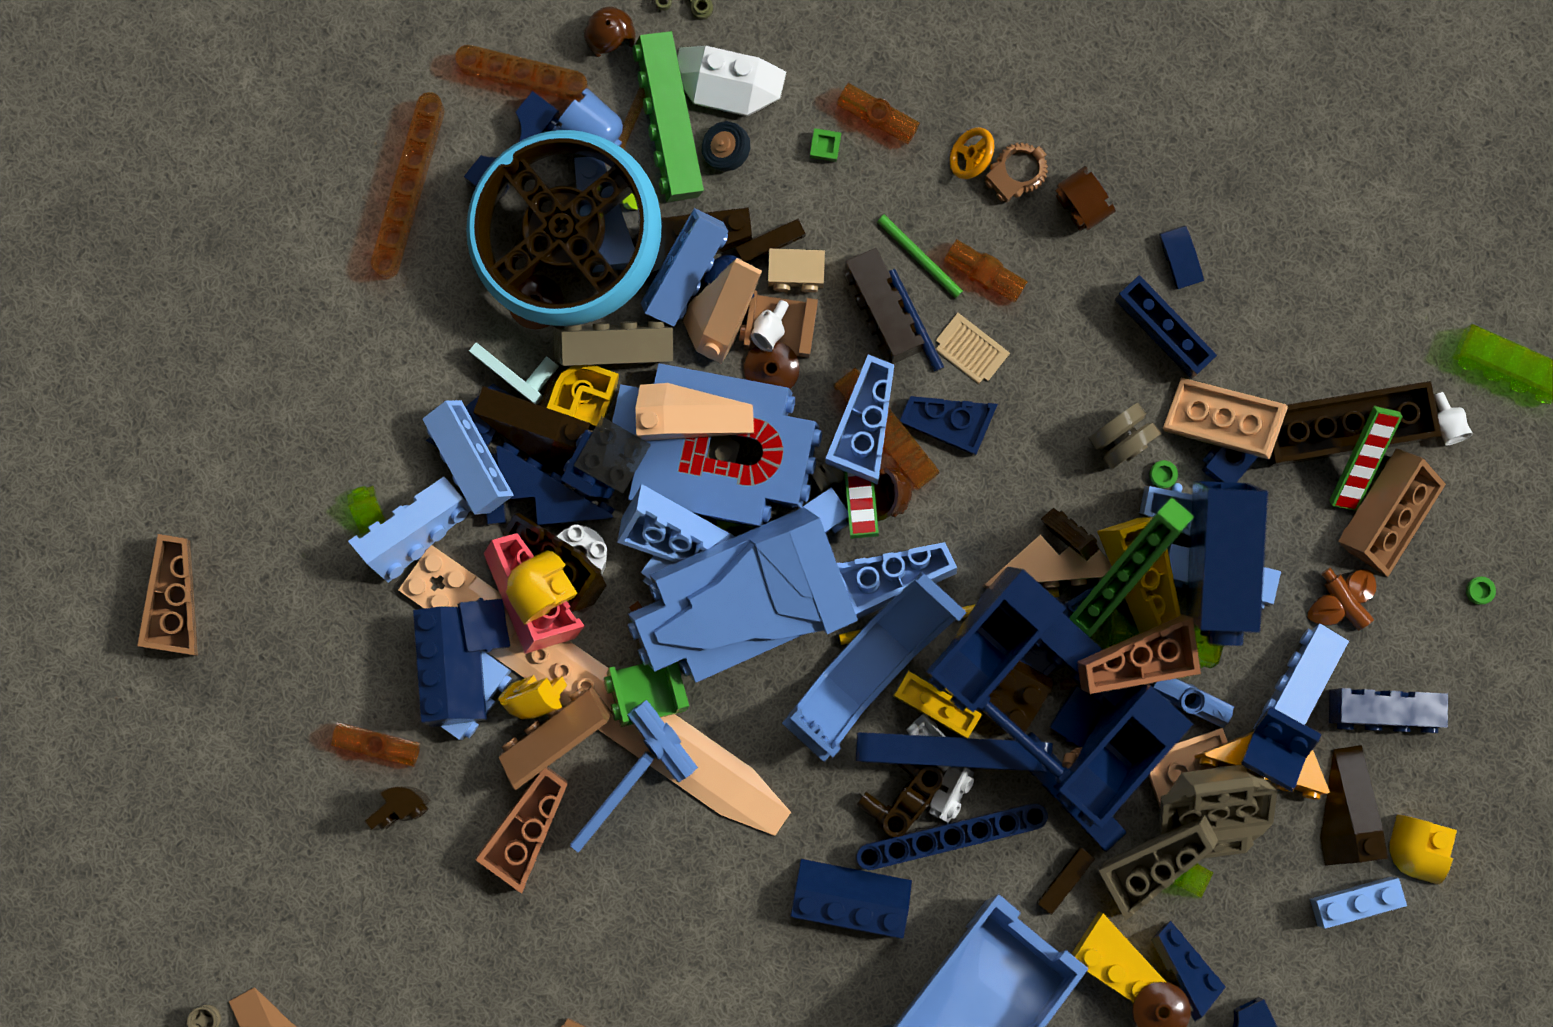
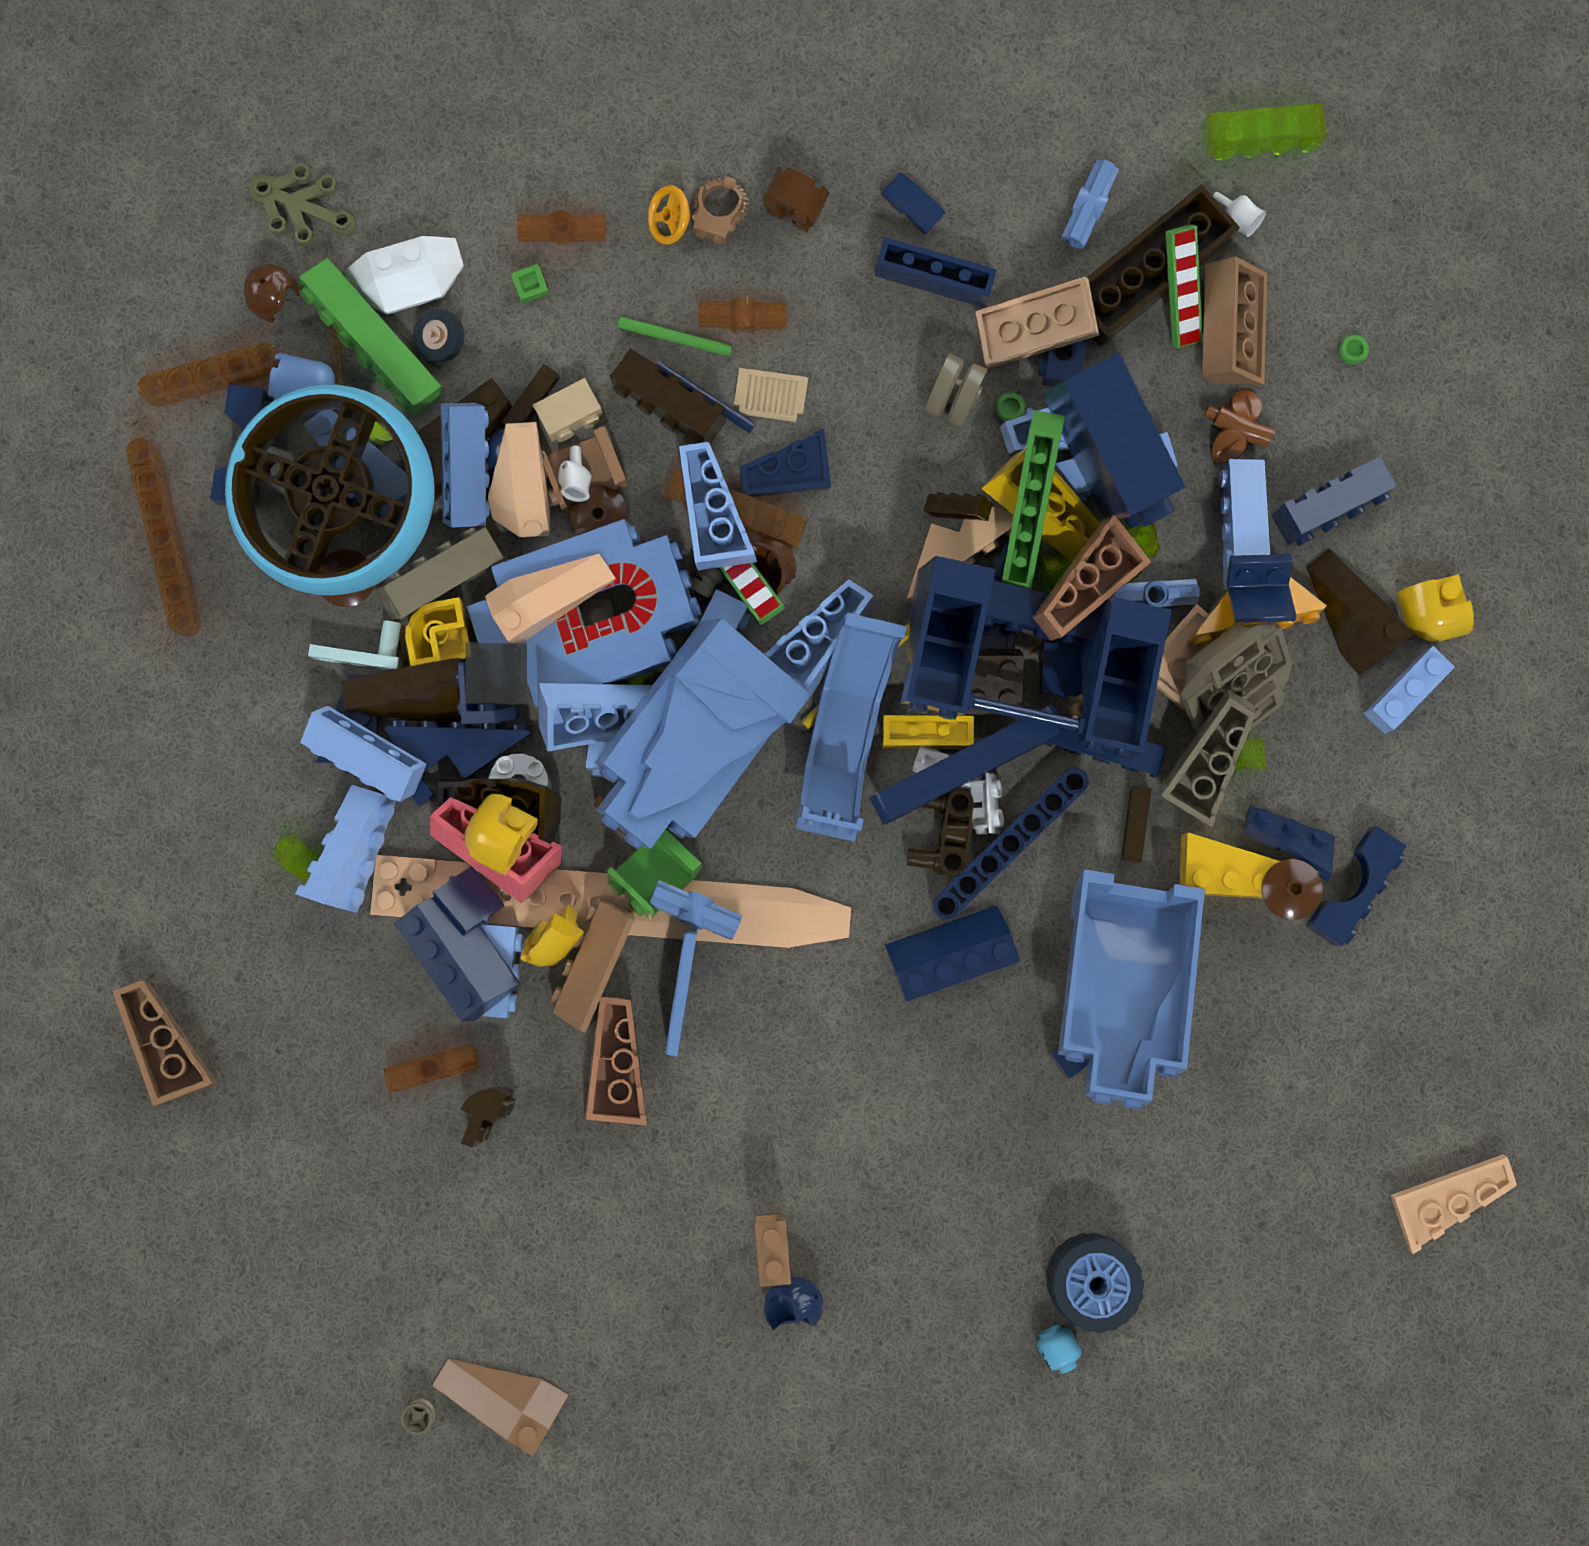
camera: 30 degrees left, 0 degrees up
(1329, 342) = (1090, 204): none -> medium blue piece

